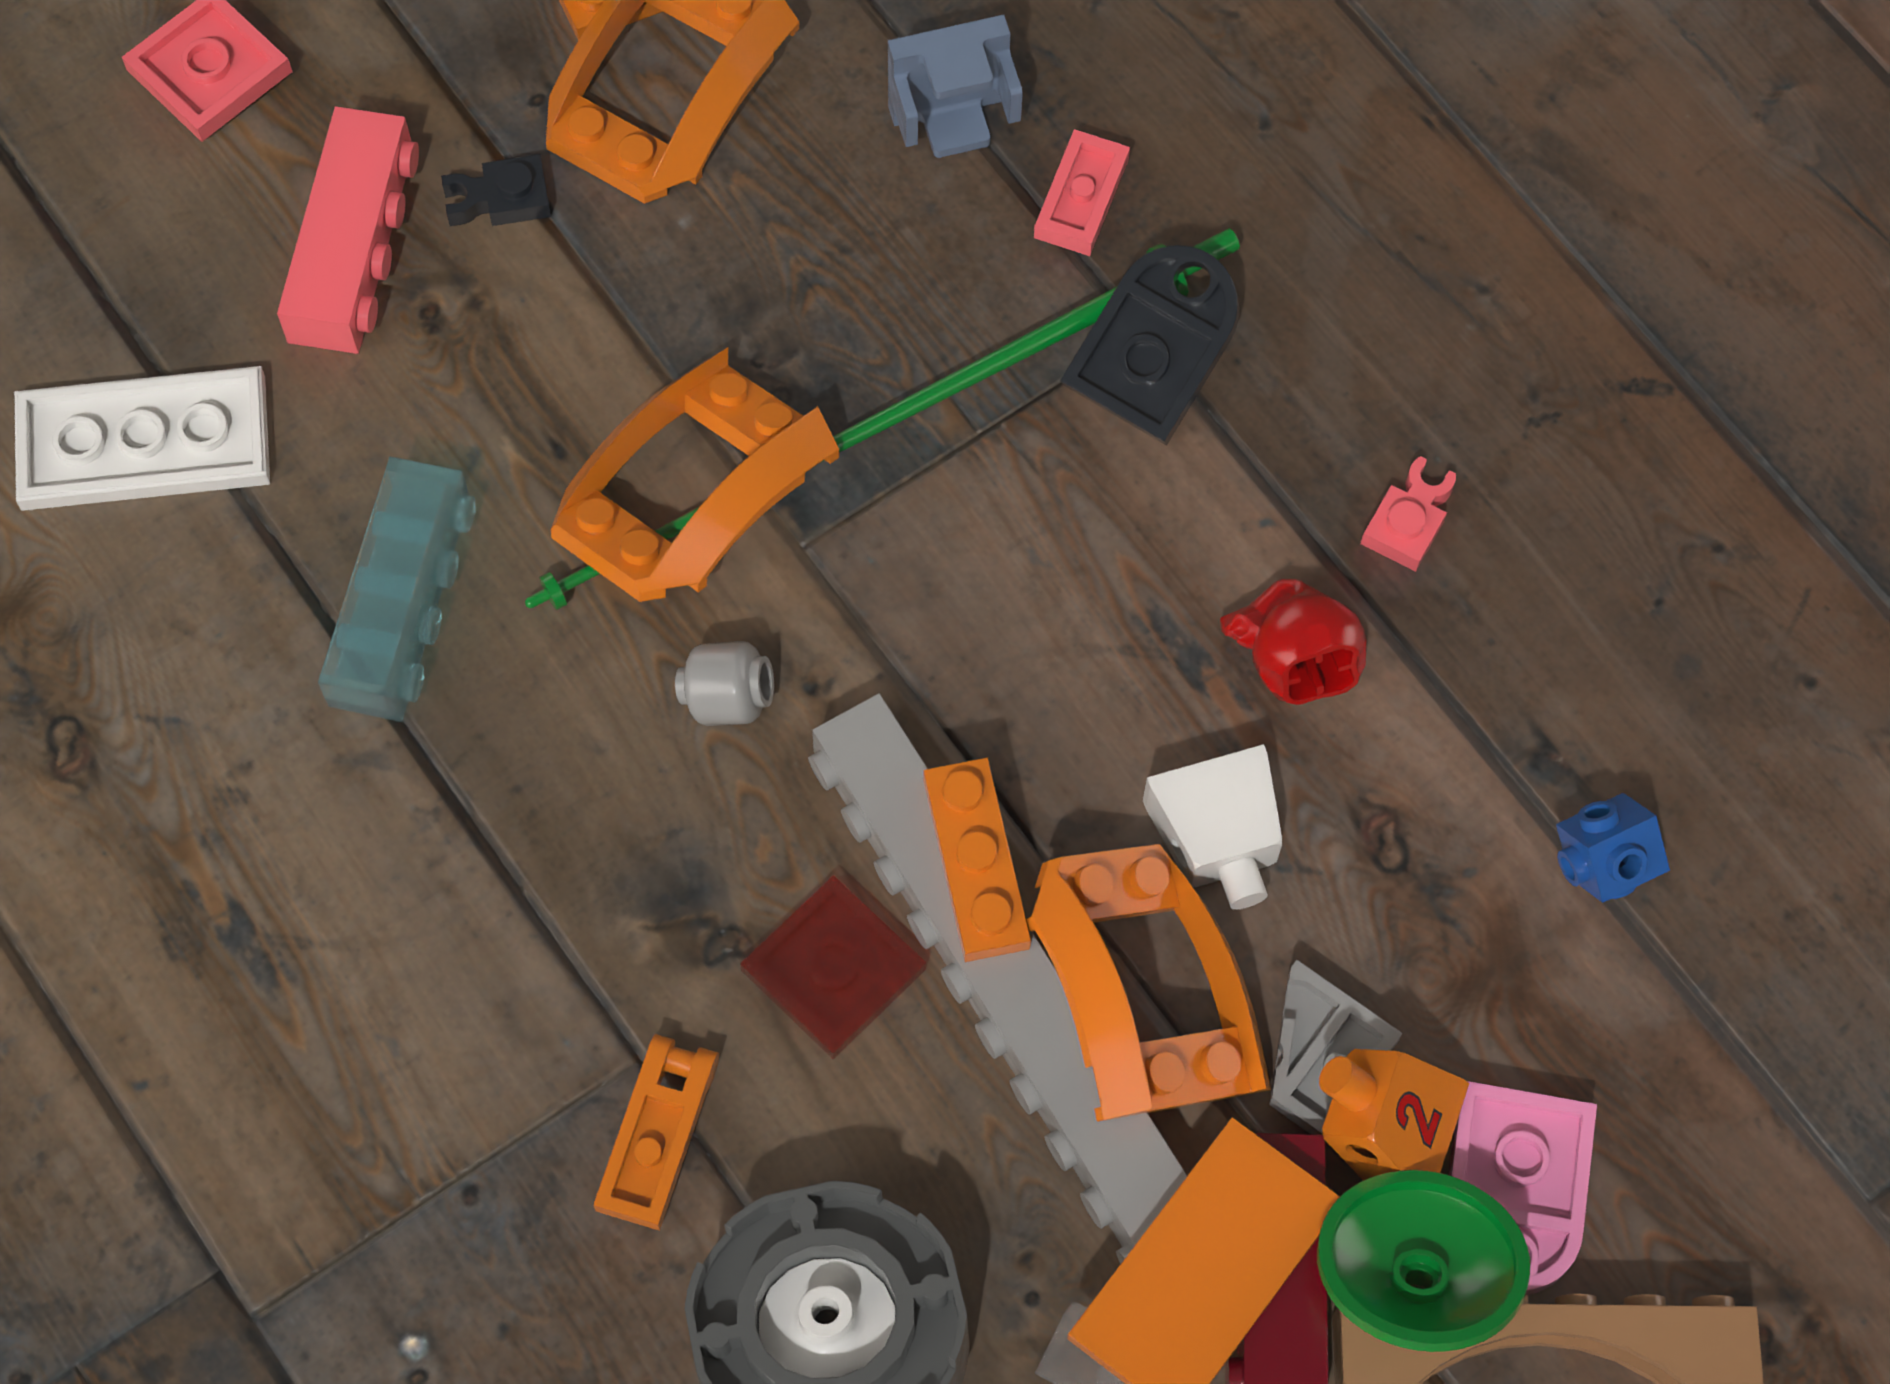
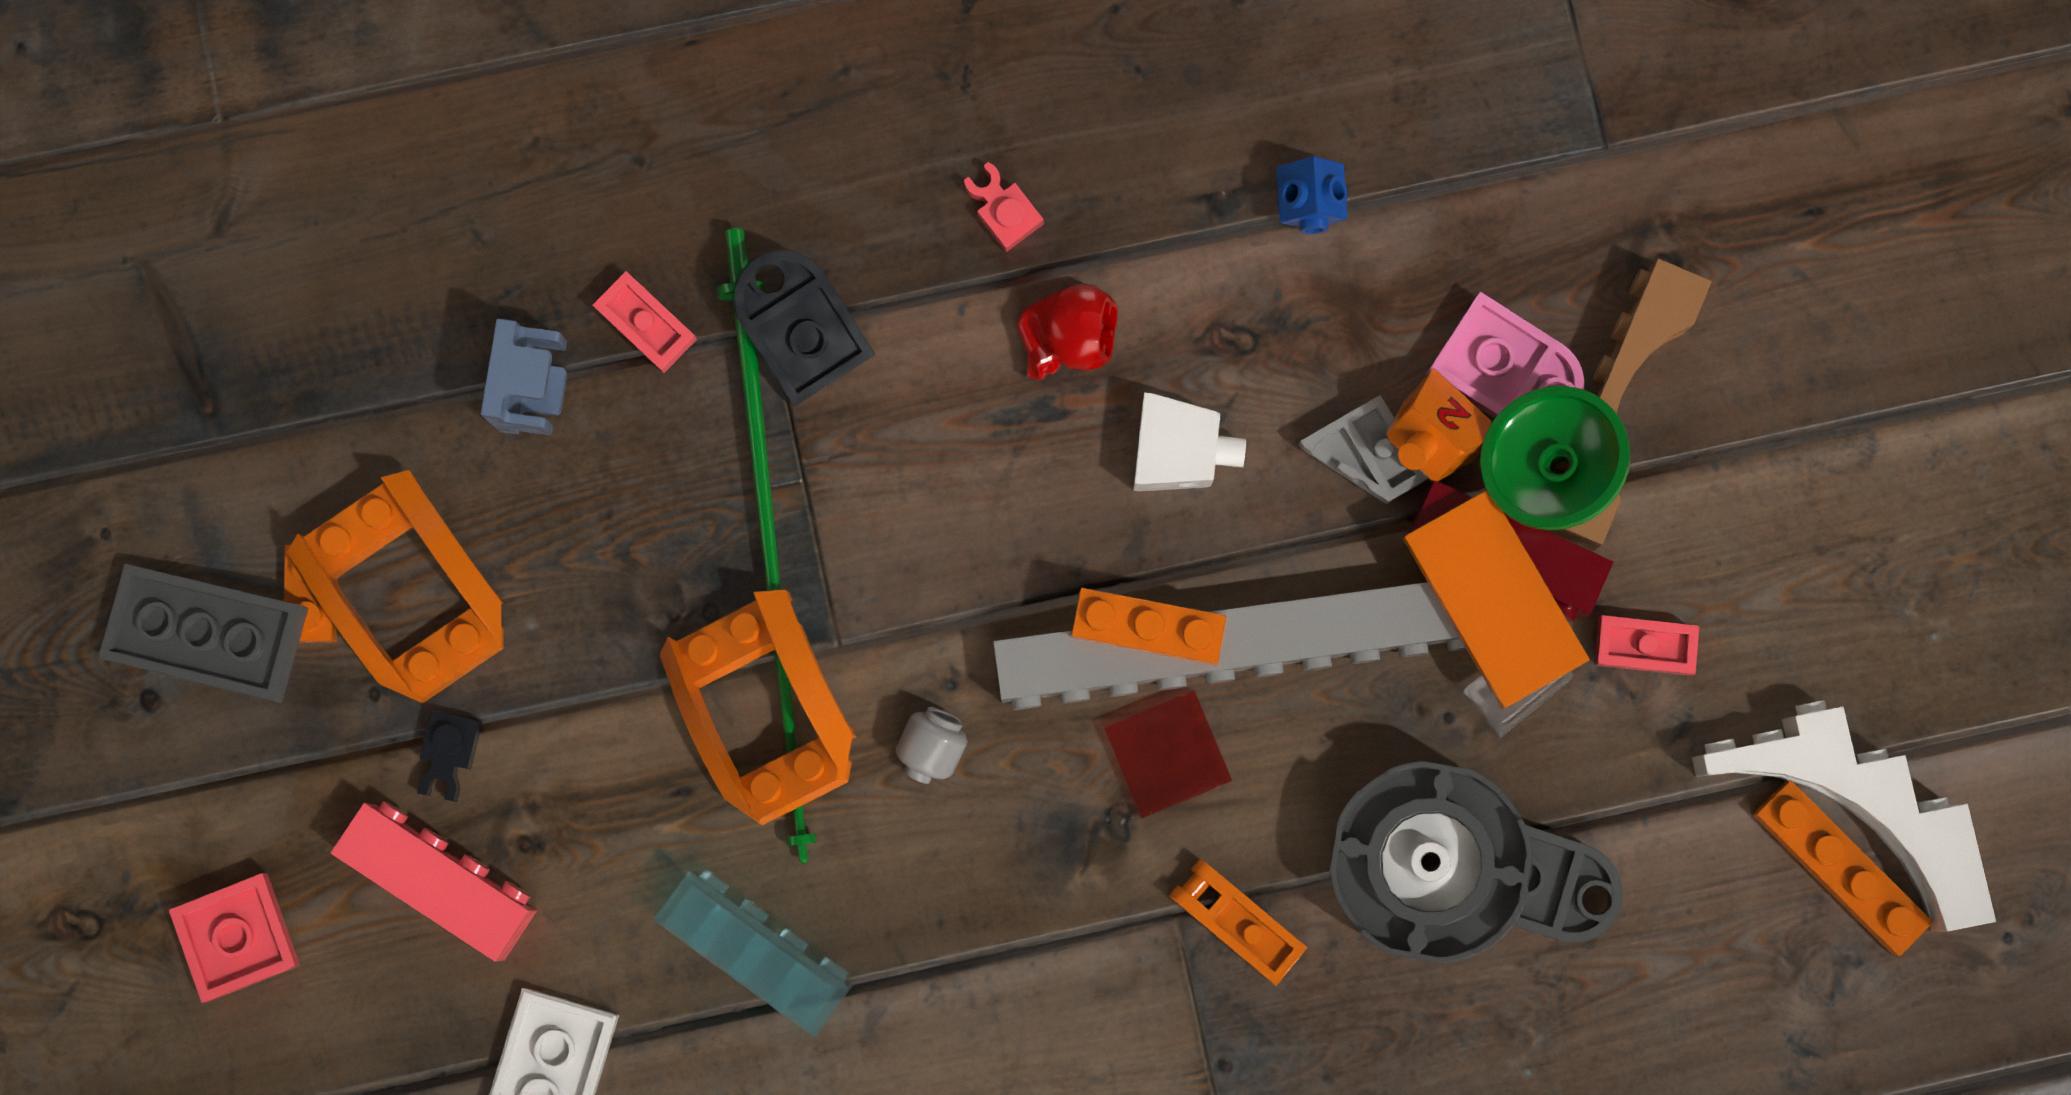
camera: 65 degrees left, 15 degrees up
(1155, 1073) = (1351, 556): orange wedge -> none

